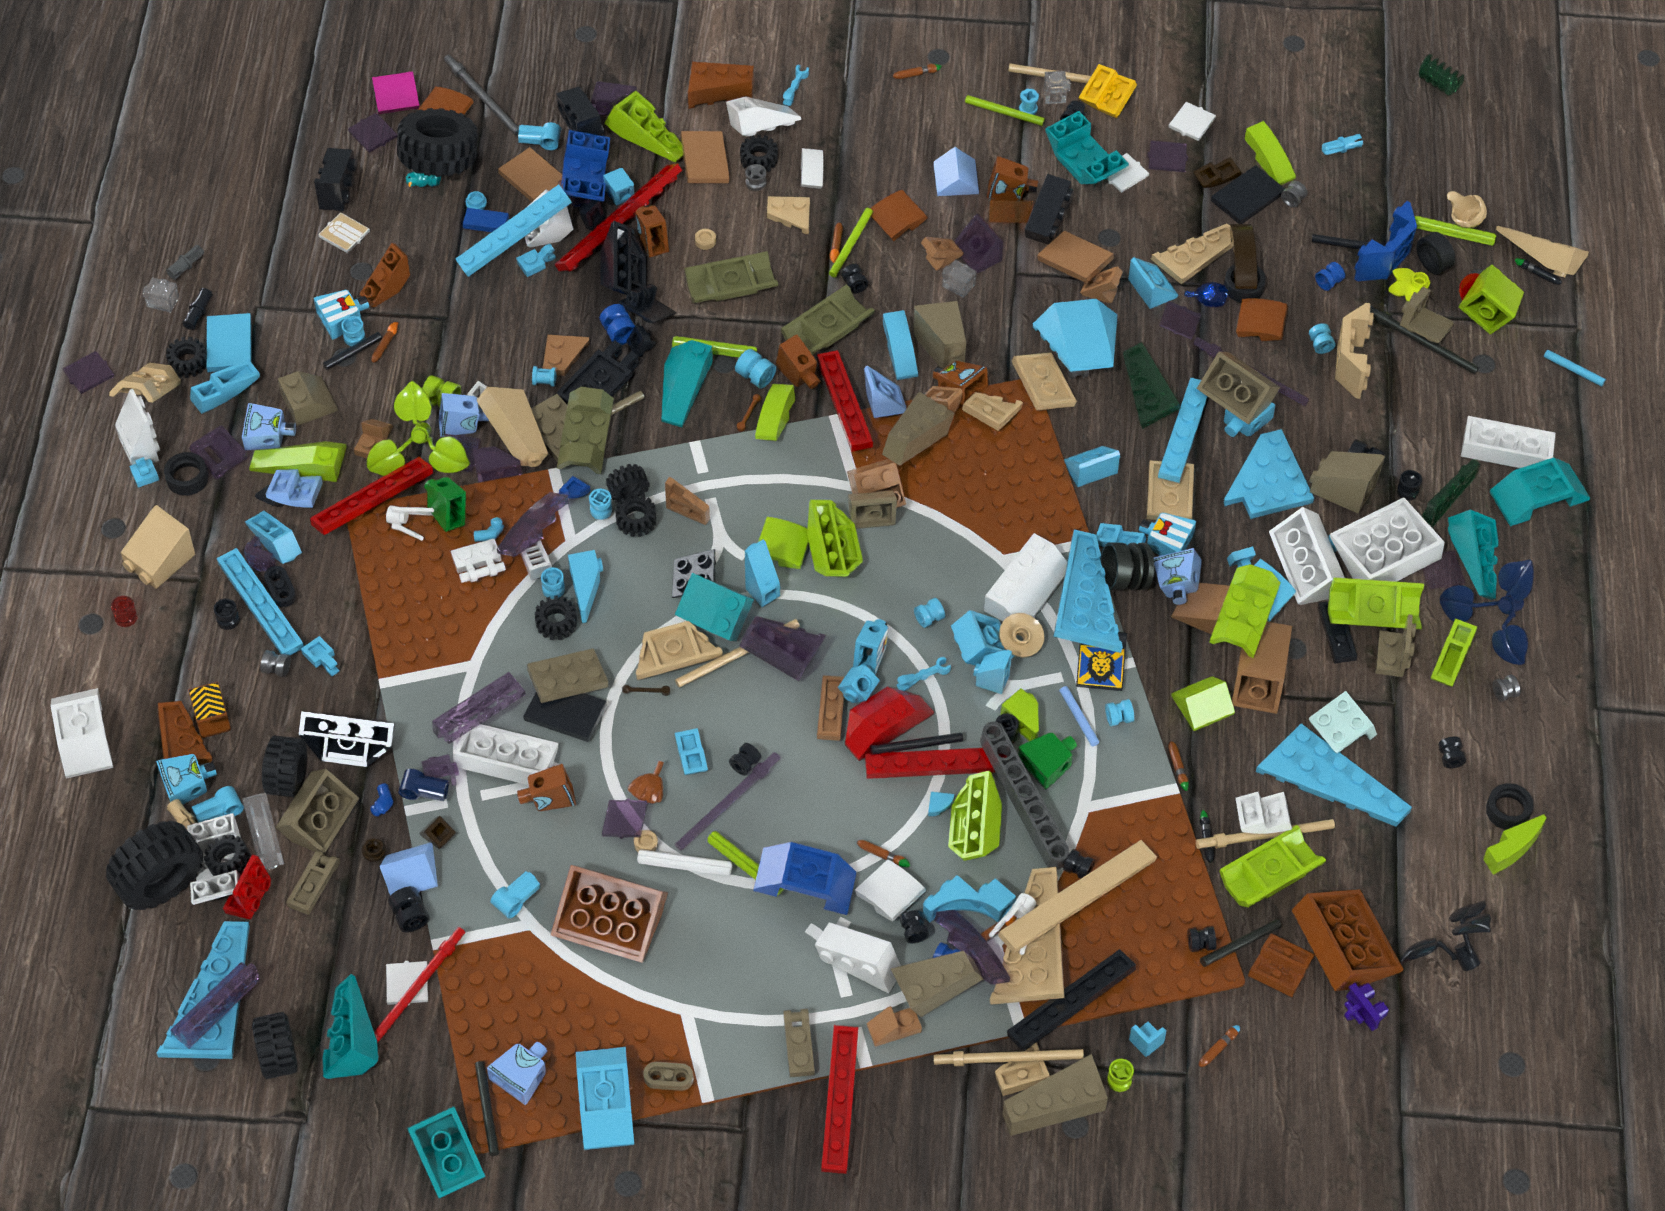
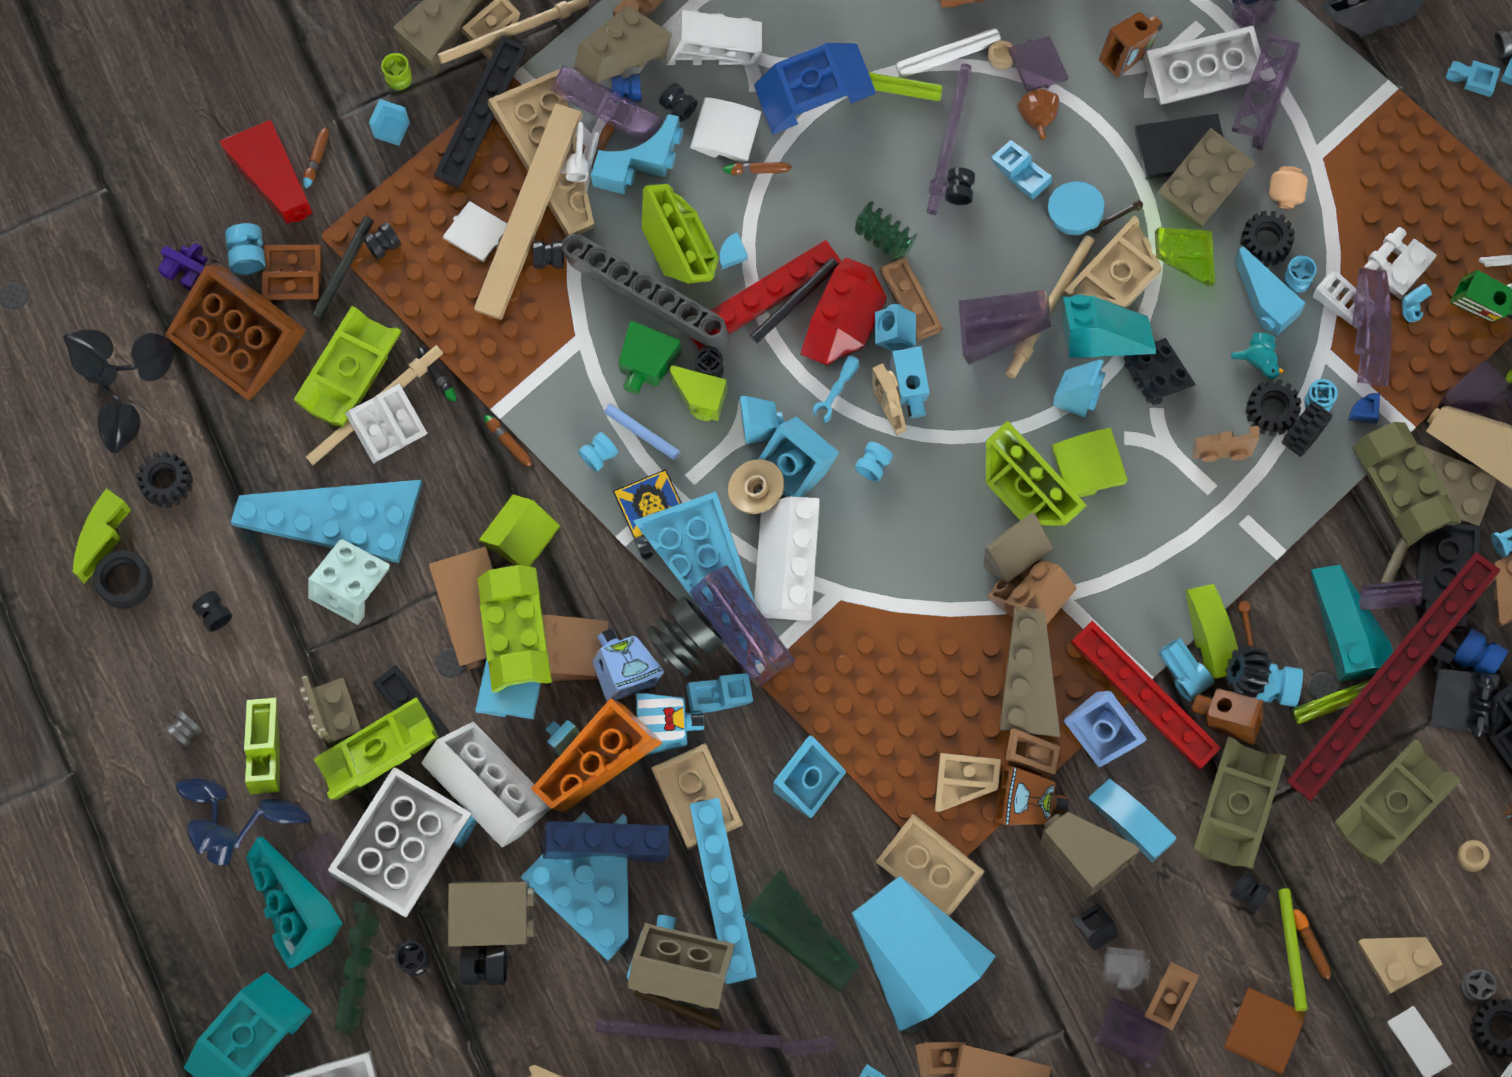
camera: 155 degrees right, 15 degrees up
(515, 640) = (1288, 187): none -> light nougat head
(617, 635) = (1187, 251): none -> clear neon green wing
(618, 548) = (1261, 355): none -> teal animal
(643, 386) = (1391, 594): none -> clear purple tile
(672, 705) = (1076, 208): none -> medium azure tile
(682, 330) = (1393, 676): none -> dark red plate
(774, 369) = (1248, 671): none -> black gear
(807, 402) = (1190, 676): none -> medium azure piece
(821, 754) = (883, 233): none -> clear green piece
(892, 644) = (885, 391): none -> tan wing
(965, 308) = (1096, 927): none -> black slope
(1085, 548) = (744, 621): none -> clear purple fence
(1123, 917) = (475, 231): none -> white piece
(1227, 525) = (596, 756): none -> orange wedge
(1263, 1050) = (267, 168): none -> red slope
(1272, 486) = (584, 839): none -> dark blue arch
(1311, 992) = (245, 249): none -> medium azure wheel
(1445, 871) = (153, 468): none -> black tyre

